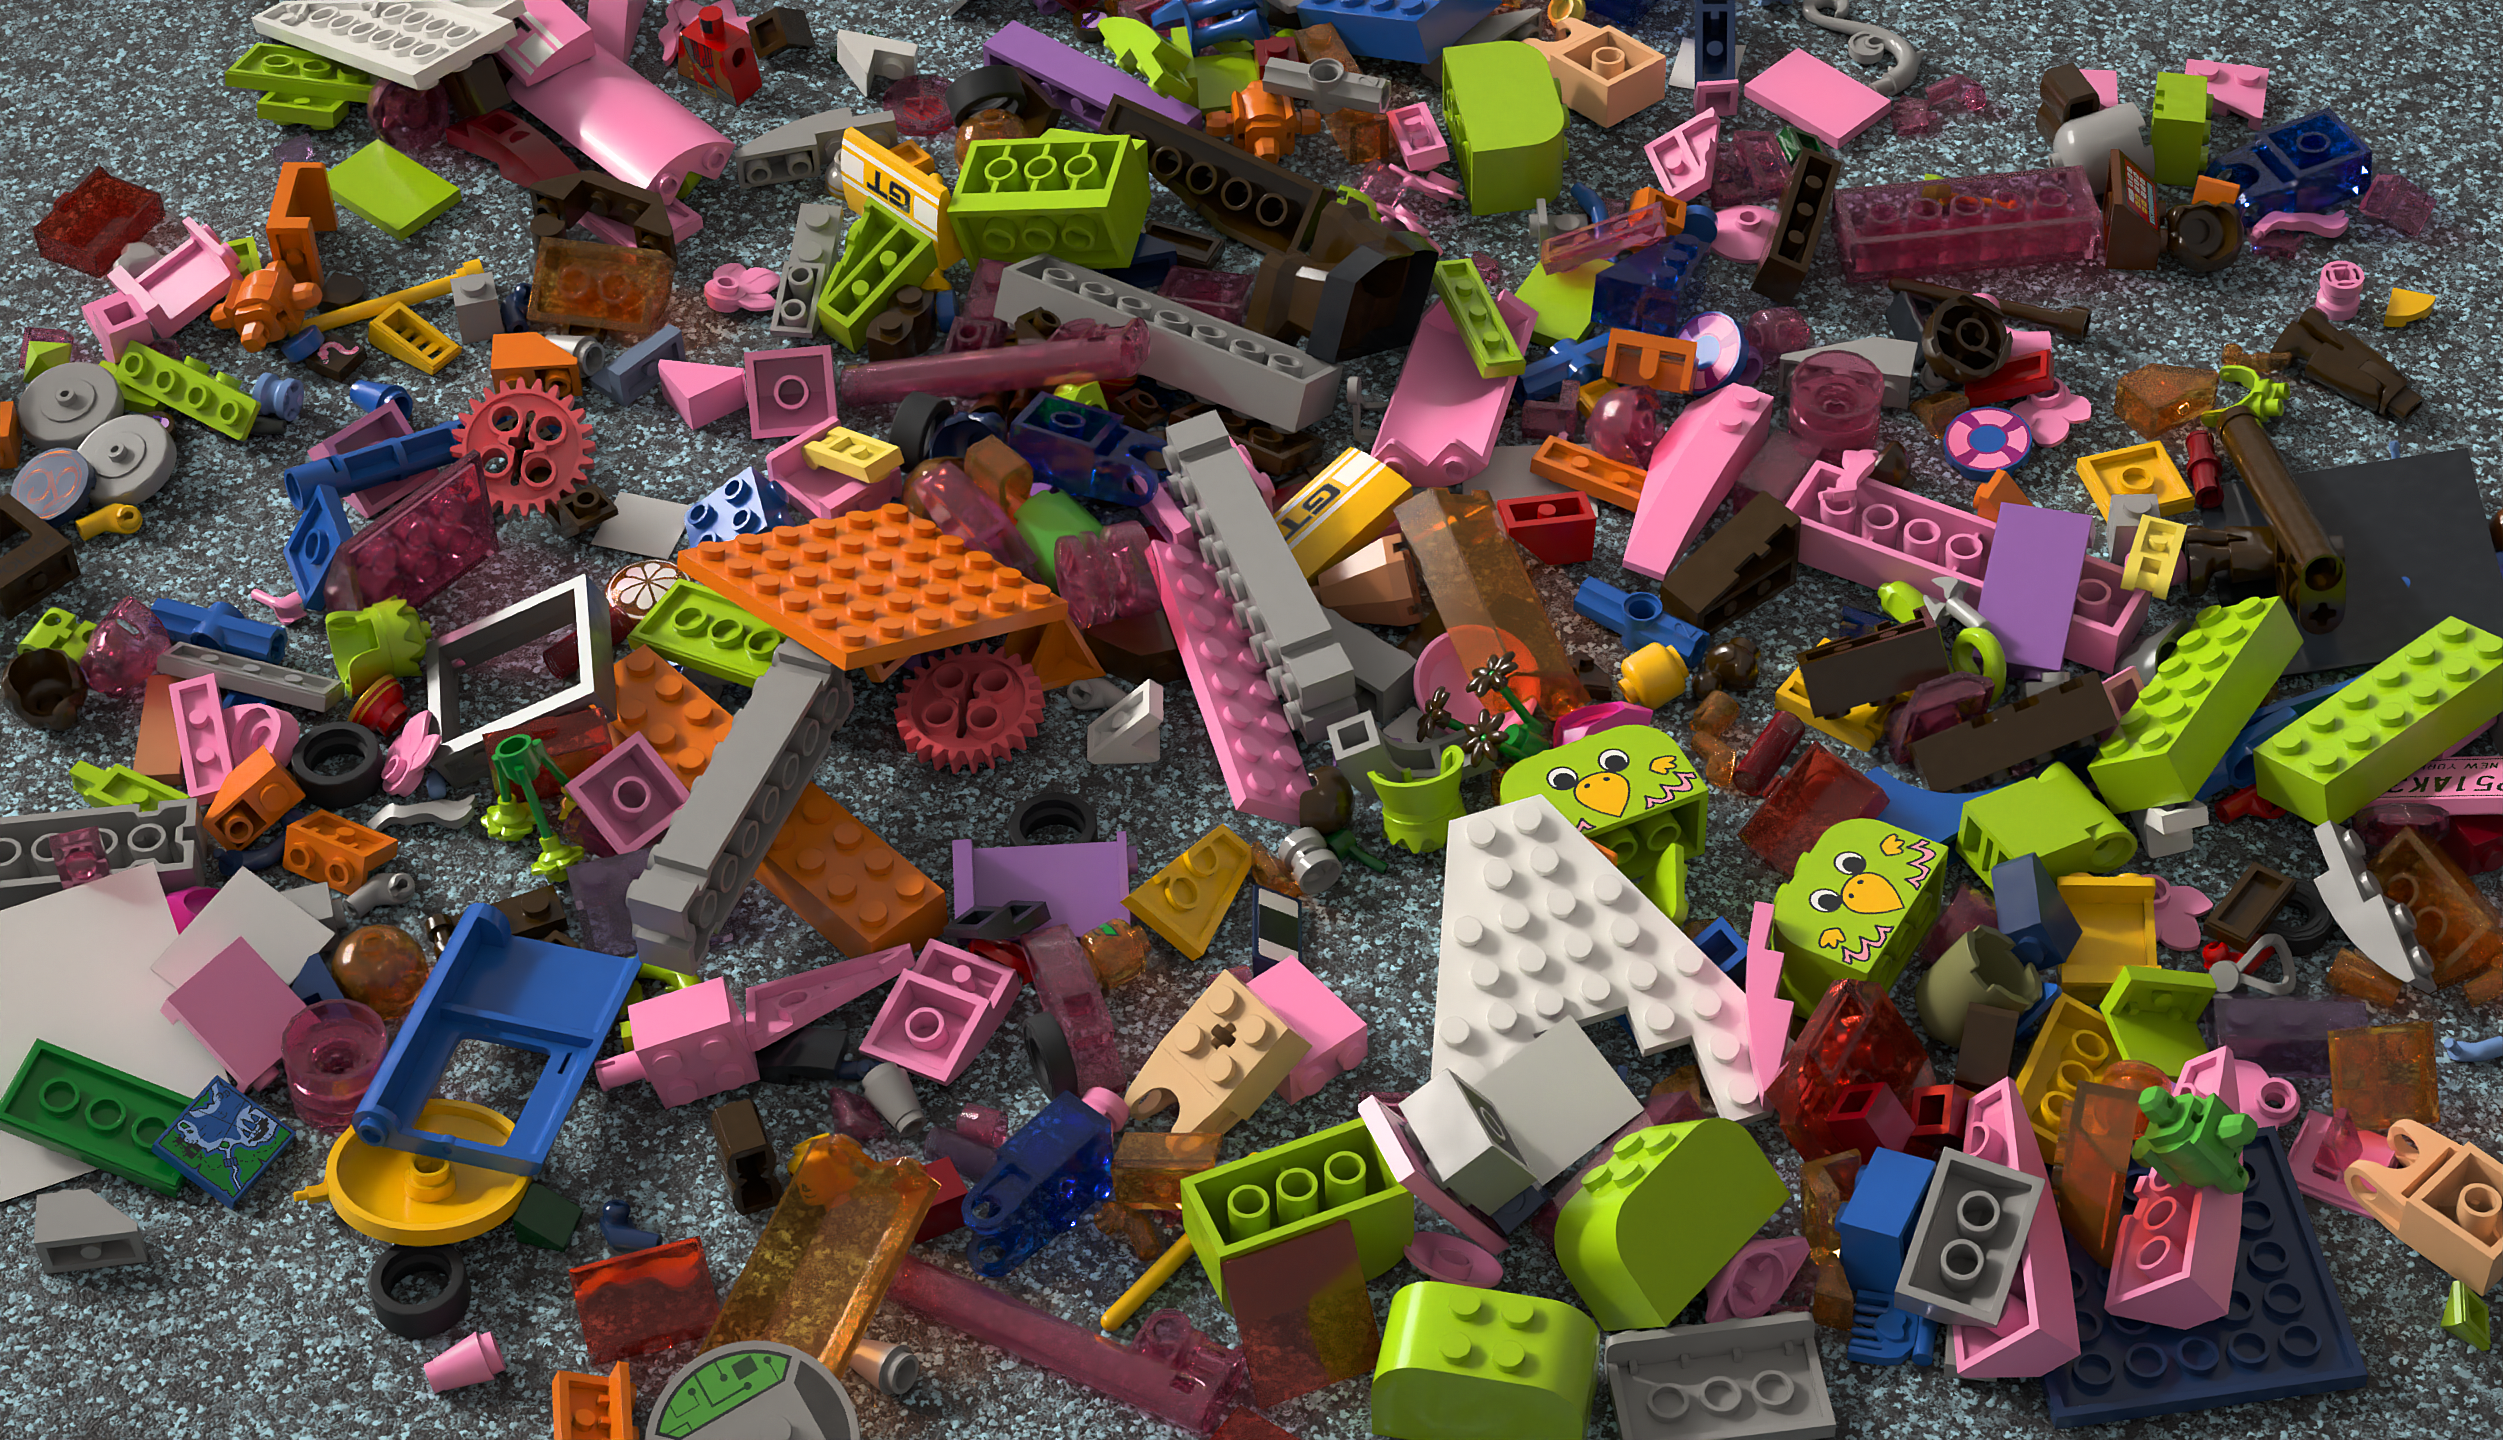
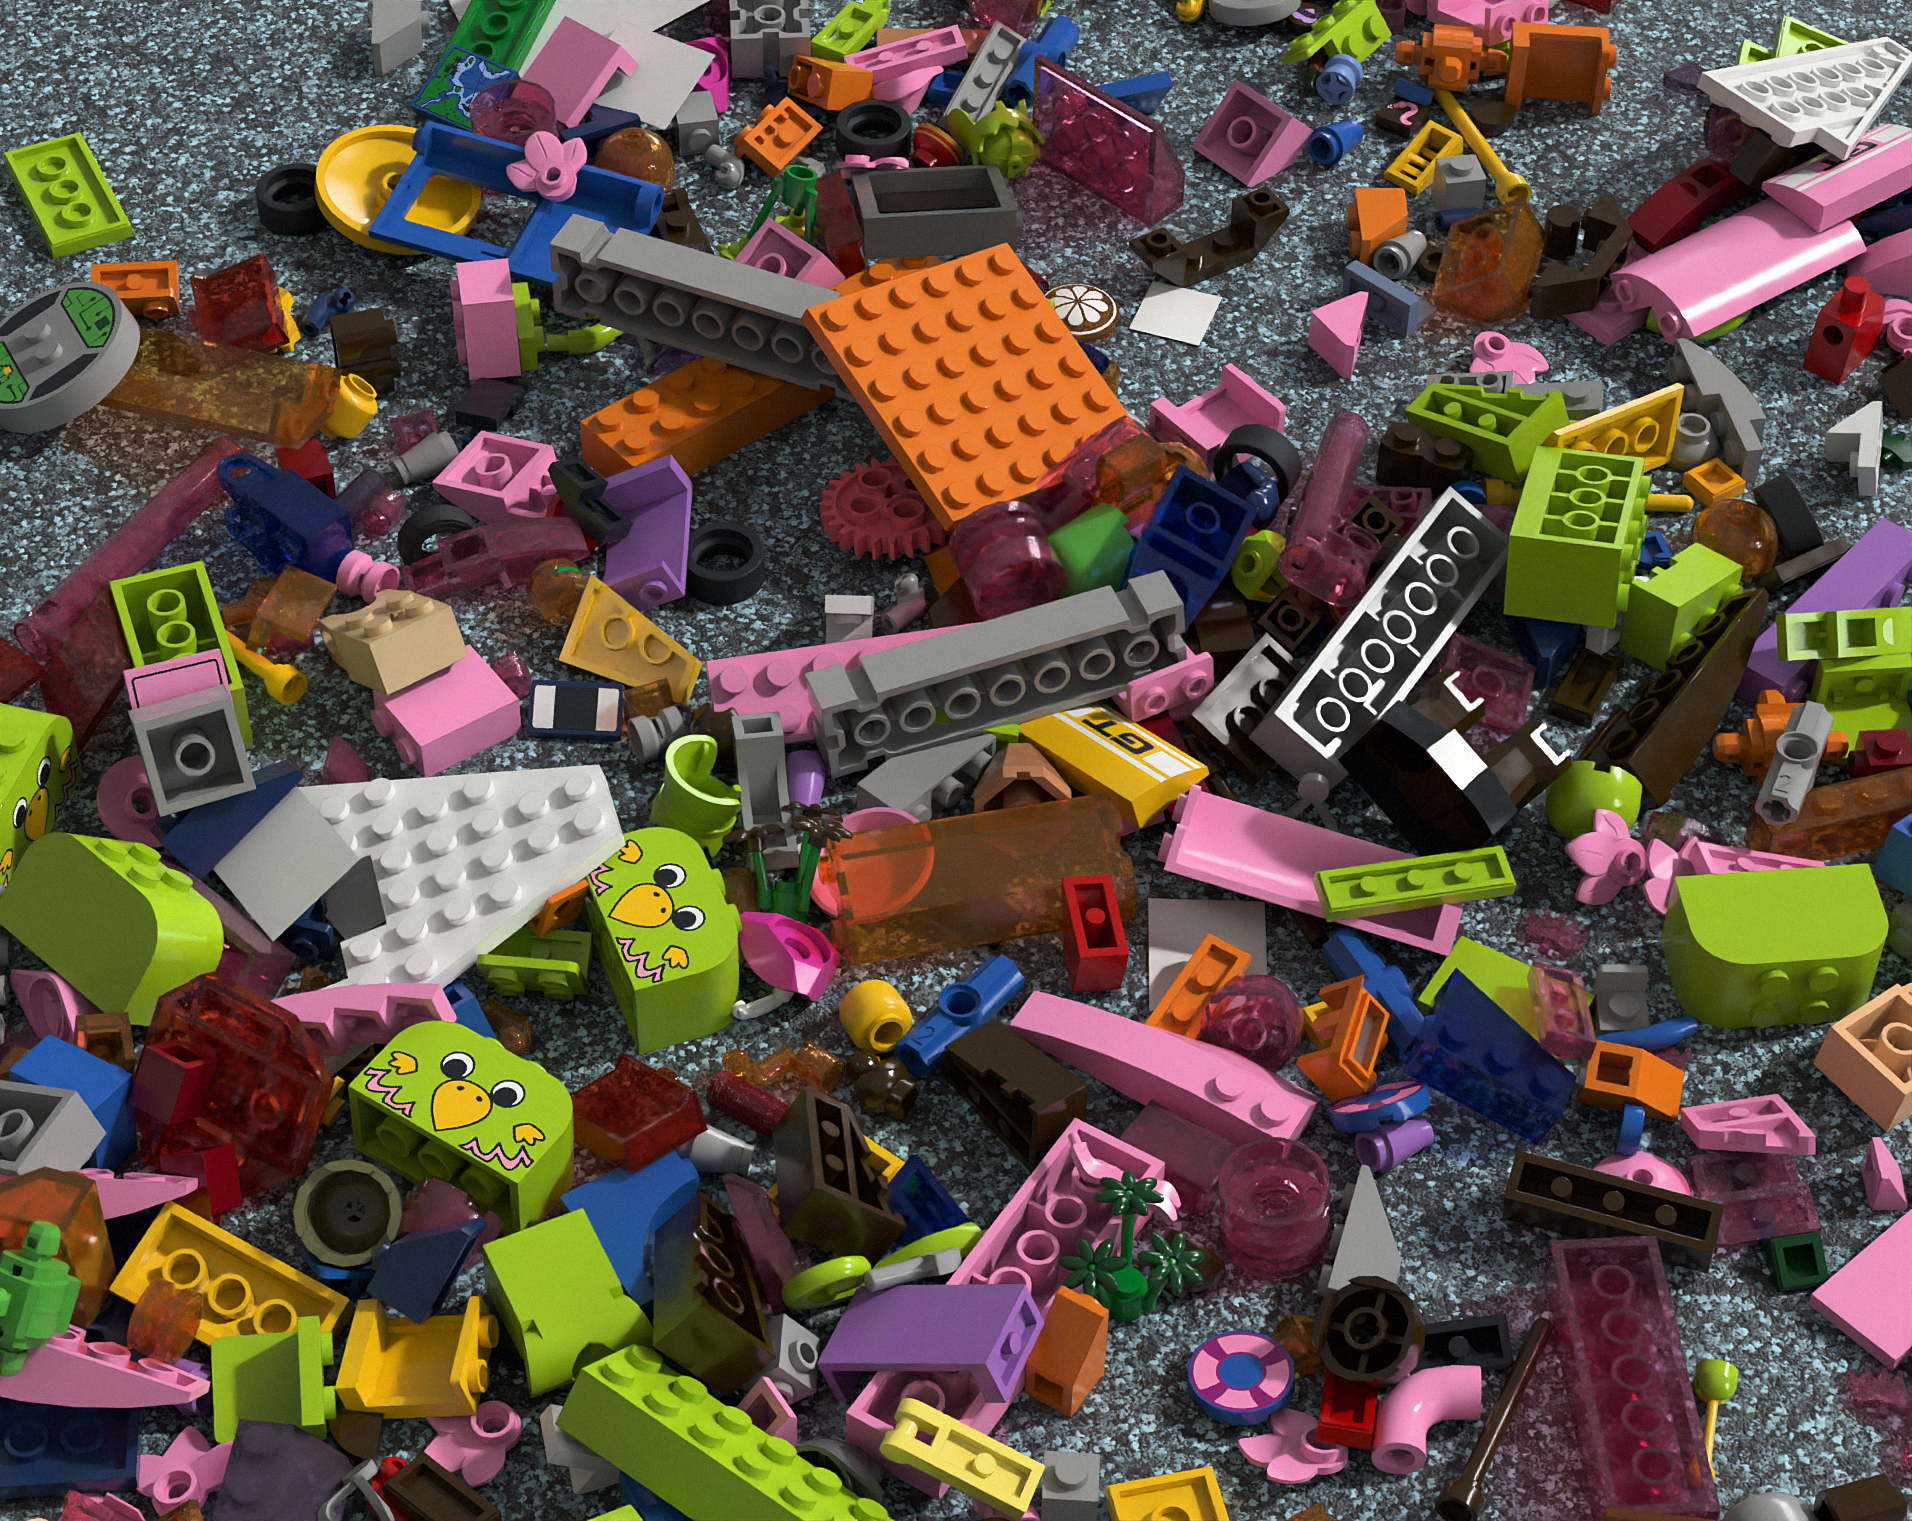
camera: 90 degrees right, 0 degrees up
(377, 464) = (1231, 135): blue piece -> none
(391, 190) = (1643, 139): lime tile -> none
(440, 996) = (547, 161): none -> bright pink plate
(466, 1363) = (215, 227): bright pink cone -> none
(546, 1219) = (352, 264): dark green slope -> none
(562, 456) = (1222, 194): coral gear -> none
(738, 507) = (1159, 366): blue bracket -> none
(790, 390) = (1343, 379): bright pink slope -> none
(796, 1000) = (546, 396): bright pink wing -> none
(853, 455) = (1216, 411): light yellow plate -> none
(885, 1365) = (144, 448): light grey cone -> none
(919, 105) = (1824, 490): clear pink tile -> none
(1551, 418) = (1301, 972): clear pink panel -> none
(1595, 679) = (902, 973): dark brown tile -> none
(1777, 333) = (1427, 1184): clear pink head -> none
(1938, 488) = (1114, 1279): none -> dark green plant
(1986, 1047) = (267, 1218): dark brown slope -> none

